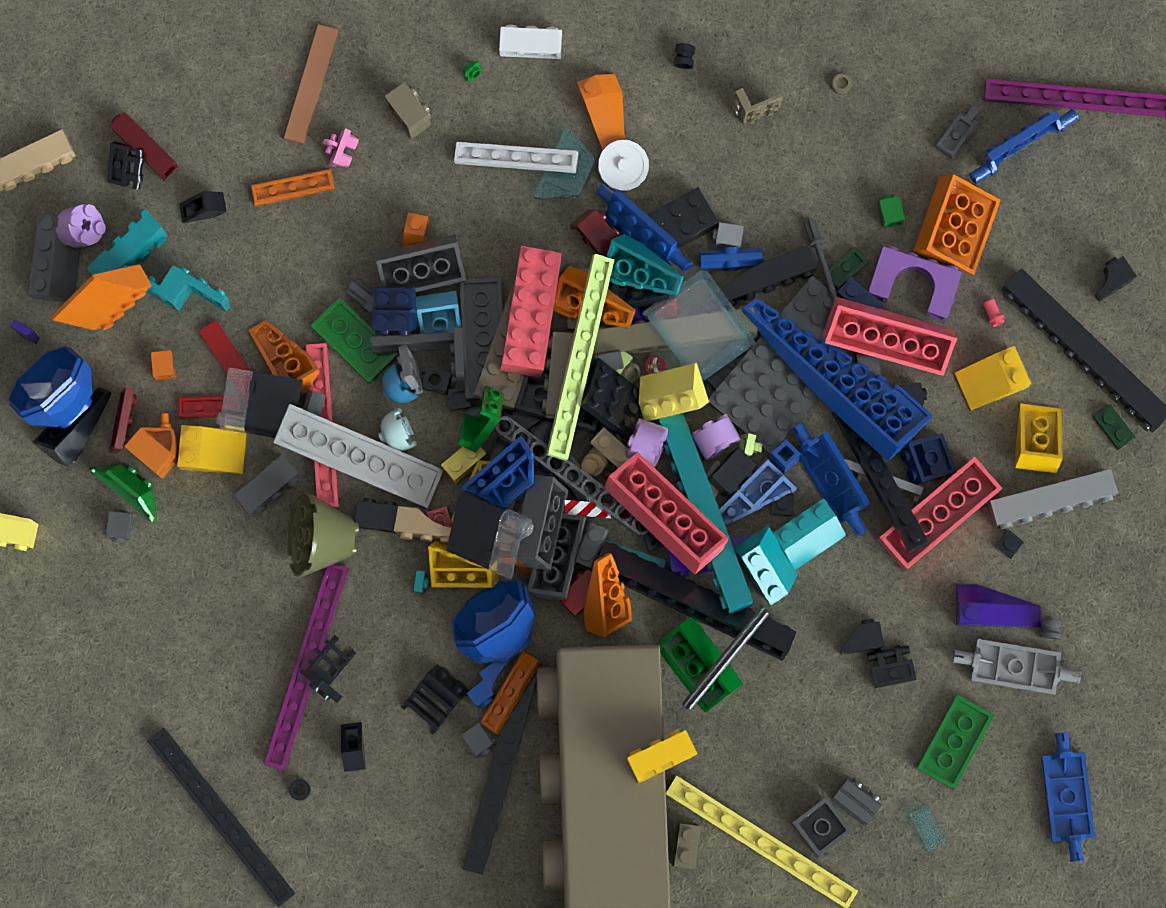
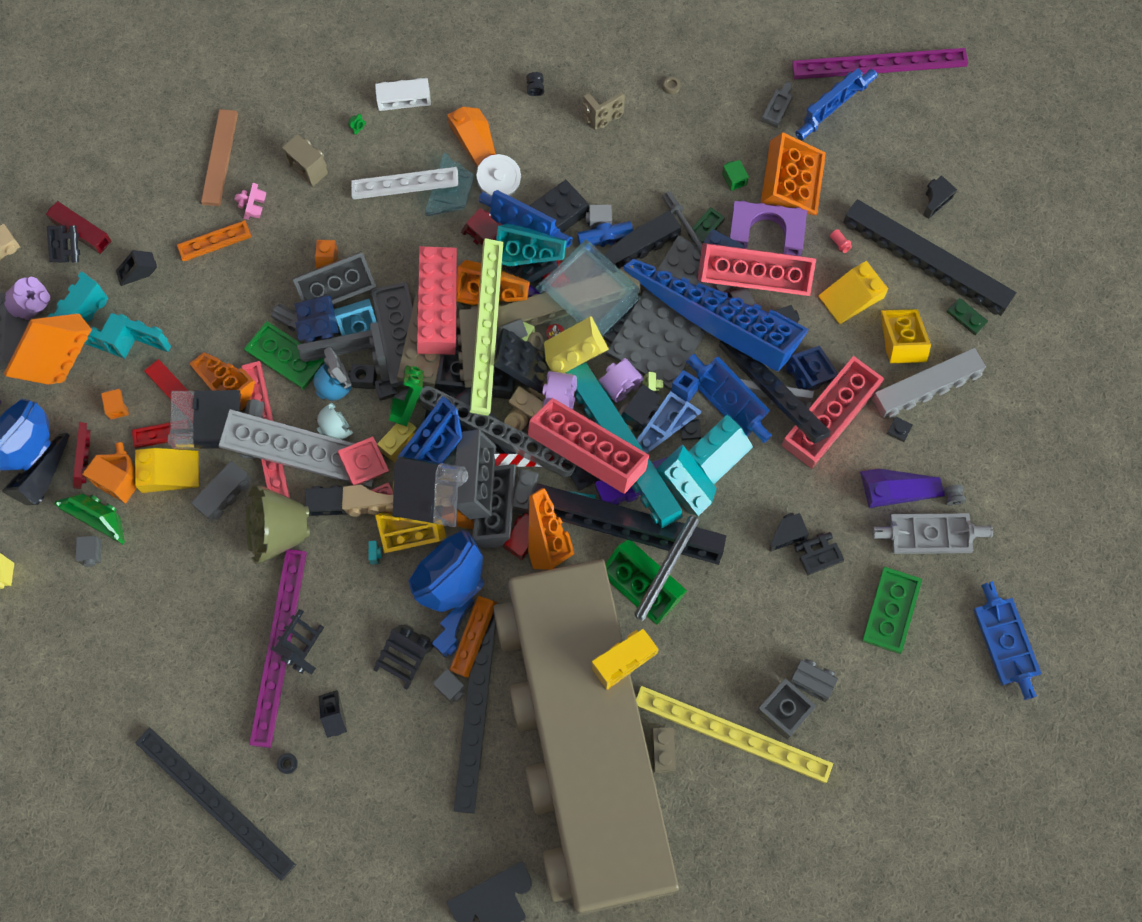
camera: 10 degrees left, 10 degrees down
(423, 481) = (363, 461): none -> coral plate
(927, 828) = (884, 694): clear light blue tile -> none

